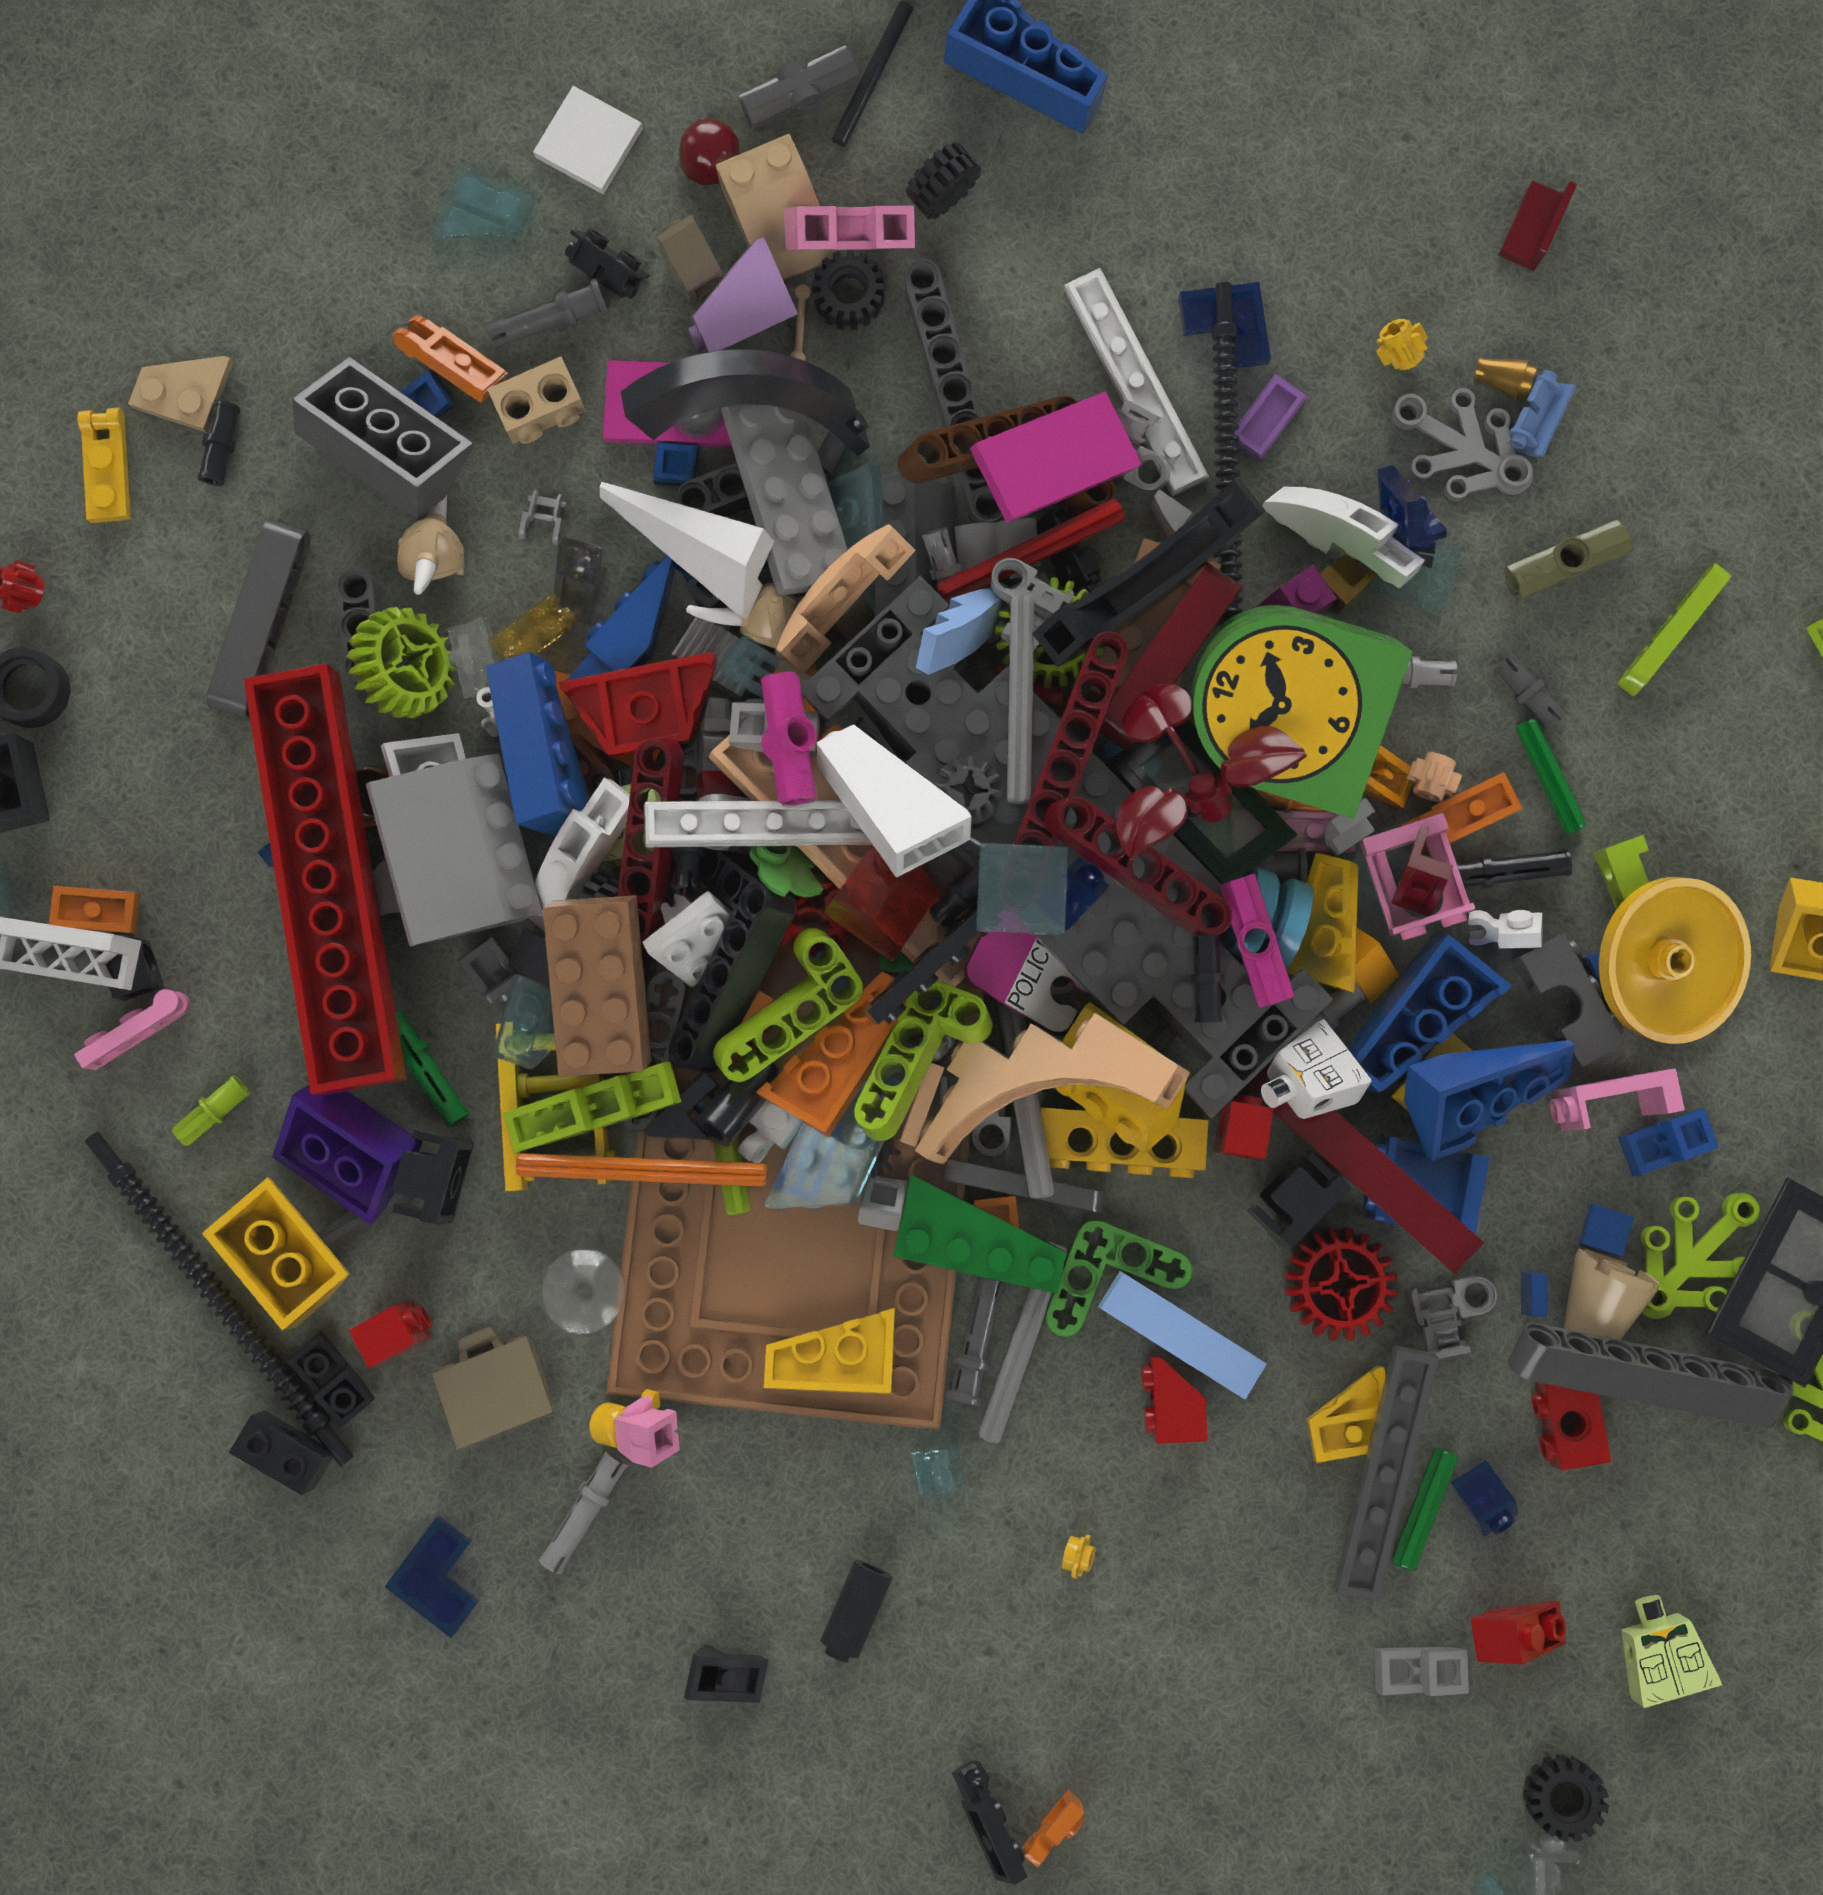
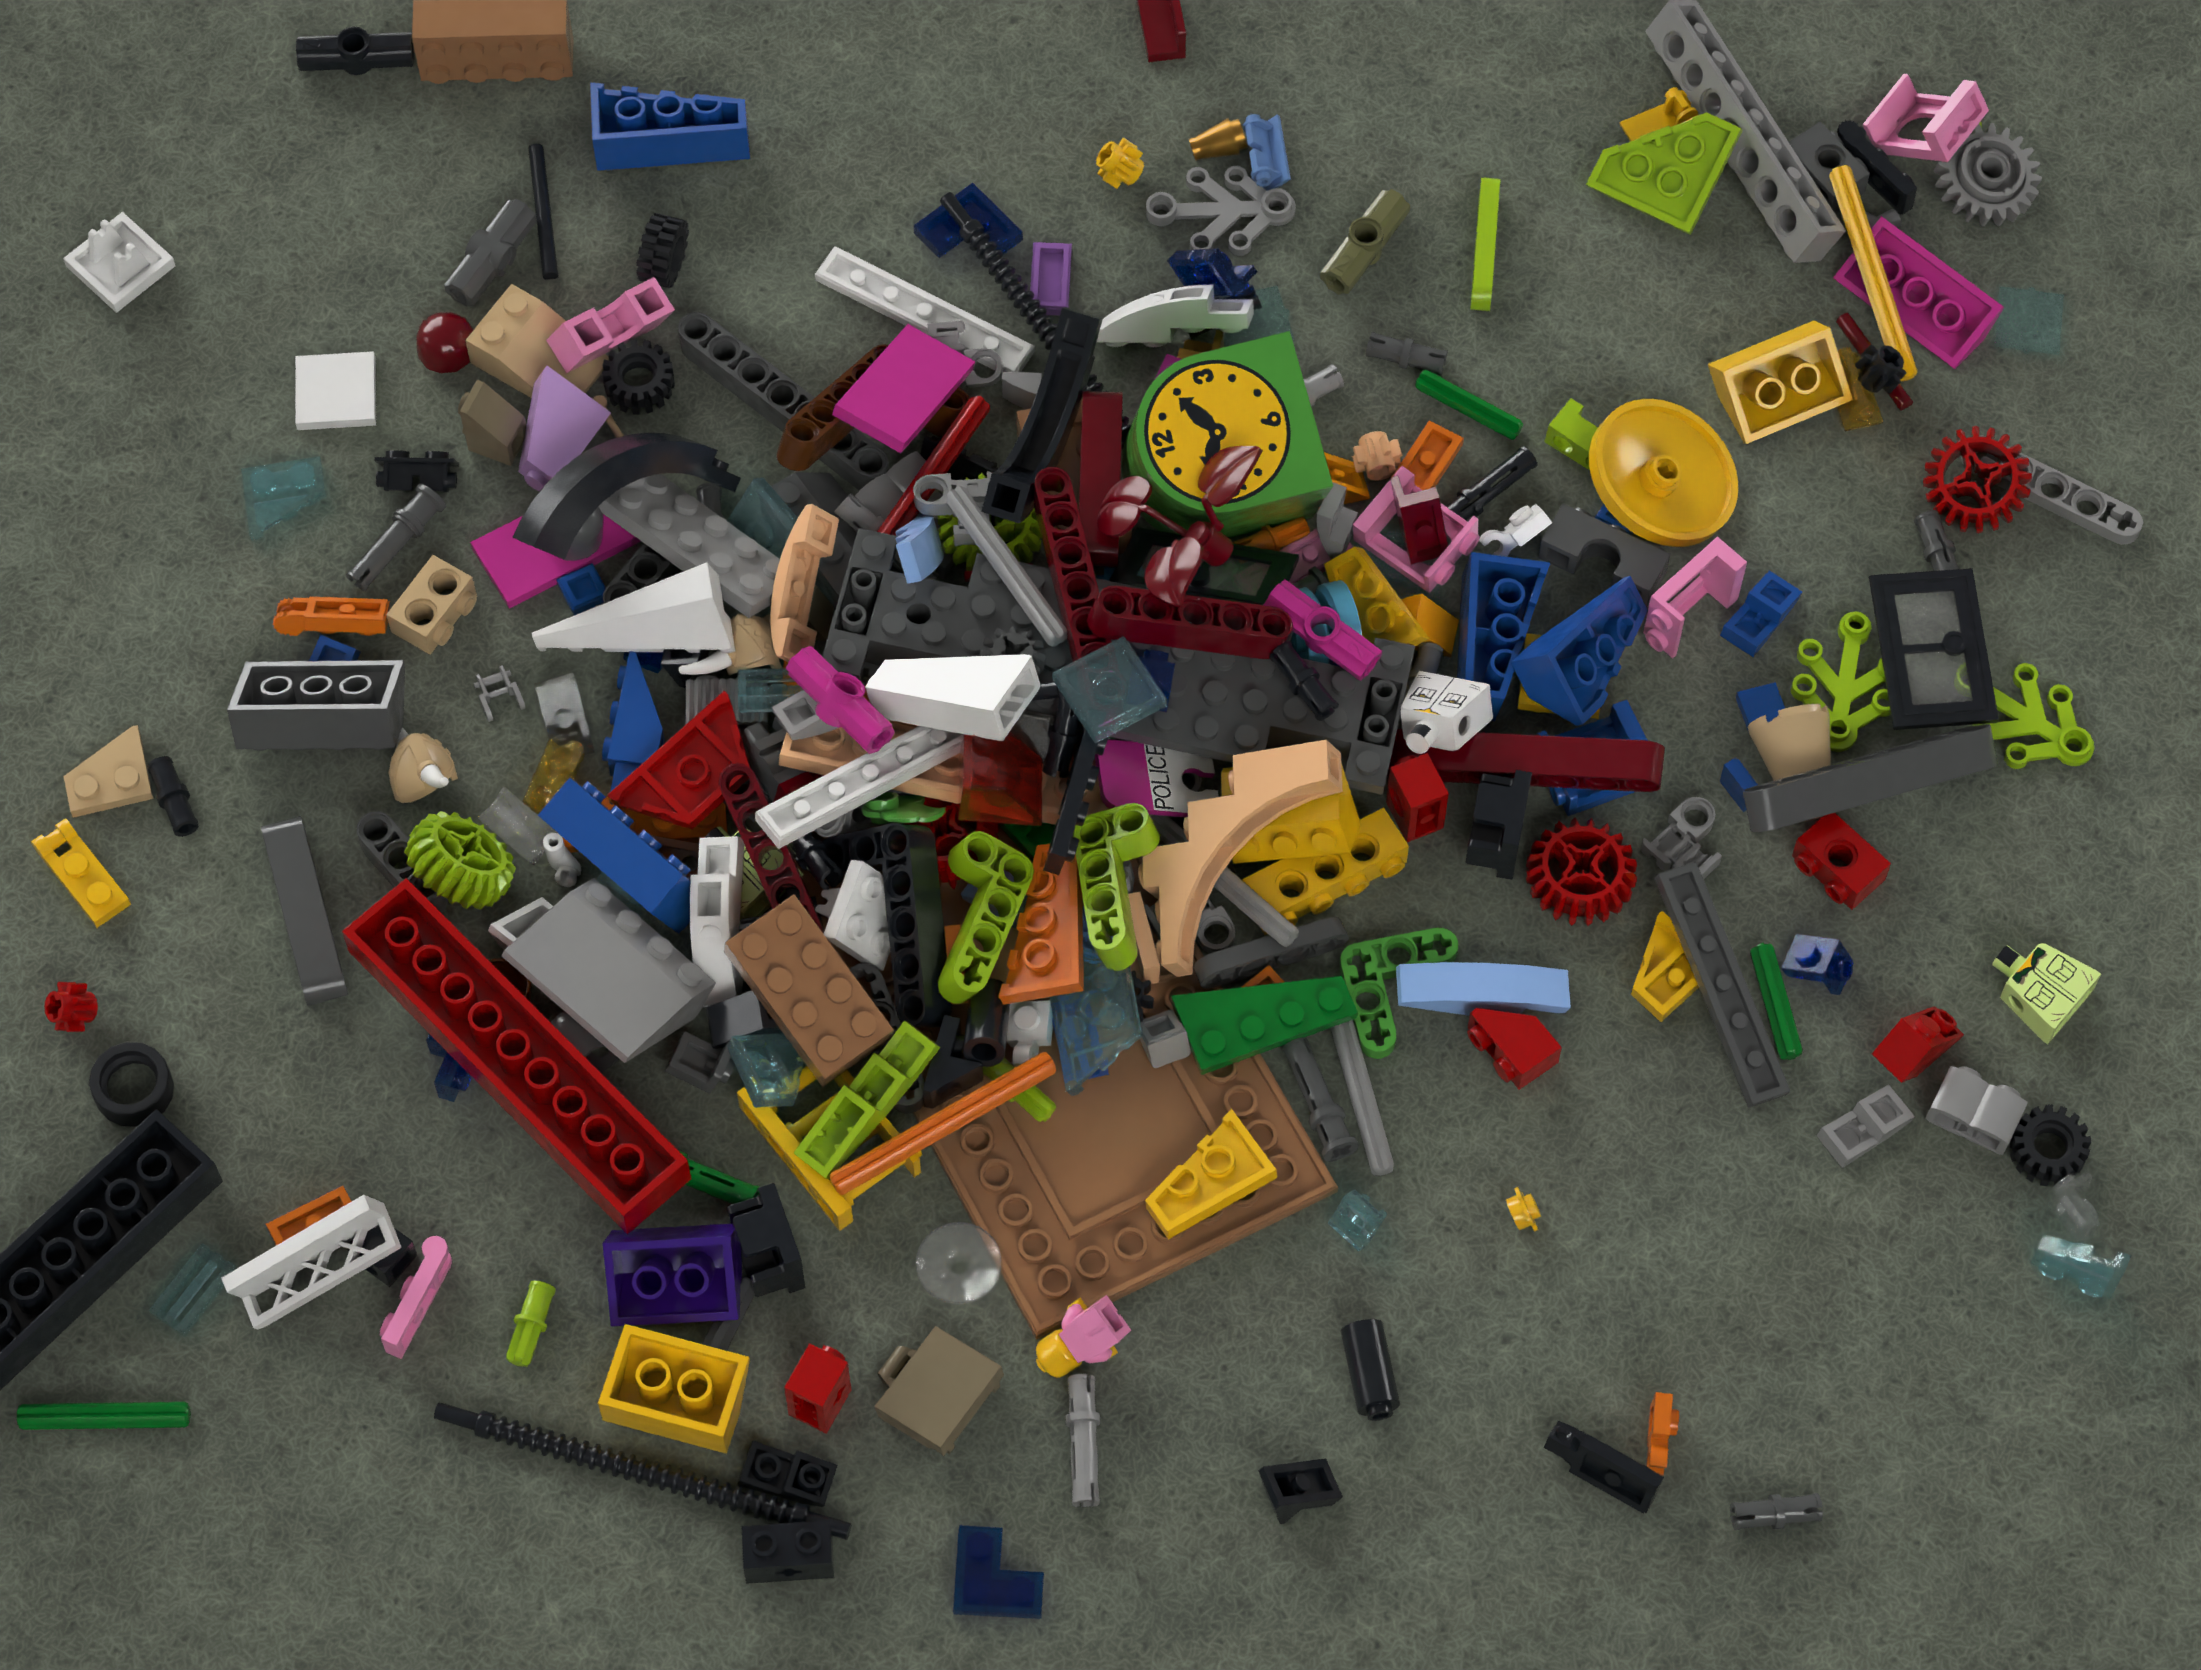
camera: 35 degrees left, 20 degrees down
(1526, 1725) = (1977, 1109): none -> light grey brick

